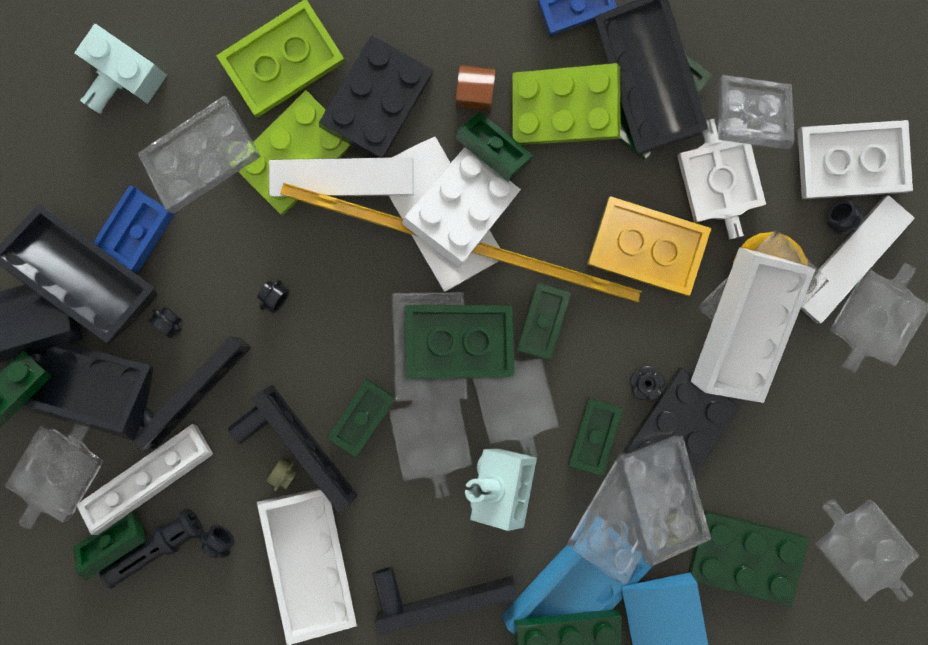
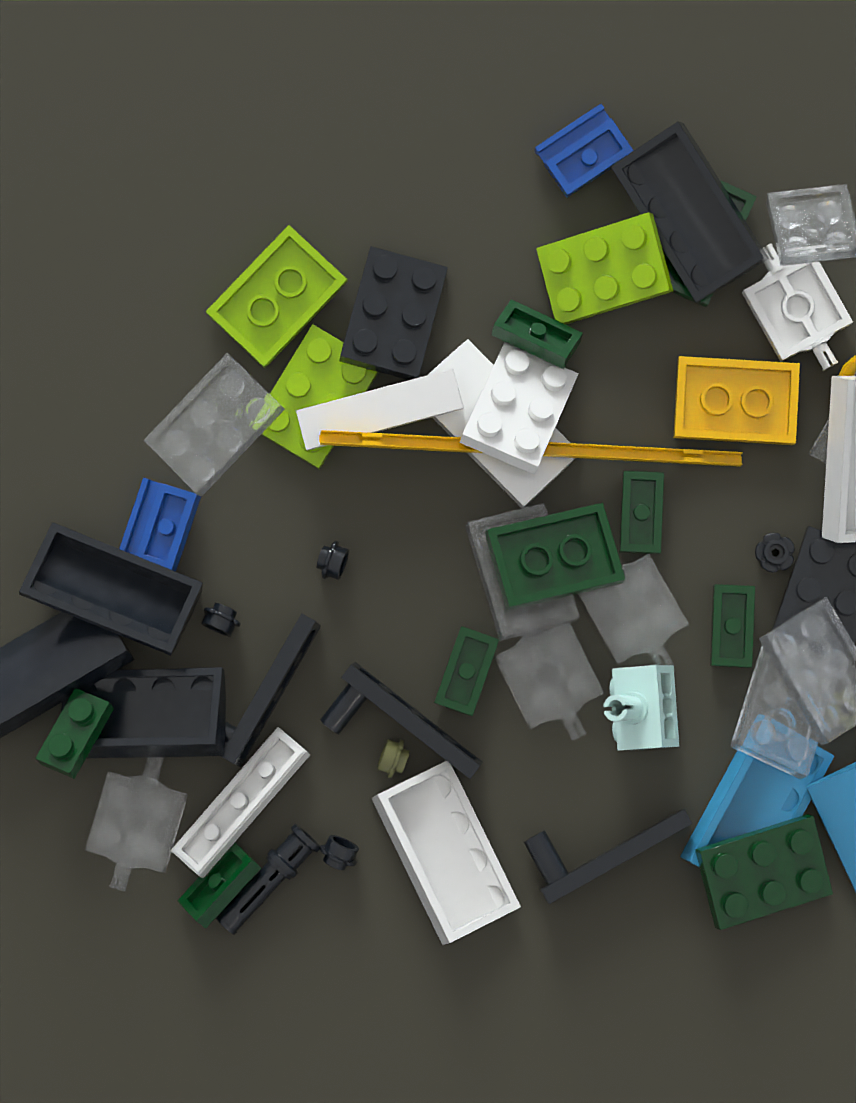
camera: 15 degrees left, 5 degrees down
(117, 68) = (101, 351): light aqua brick -> none
(475, 88) = (499, 274): dark orange brick -> none

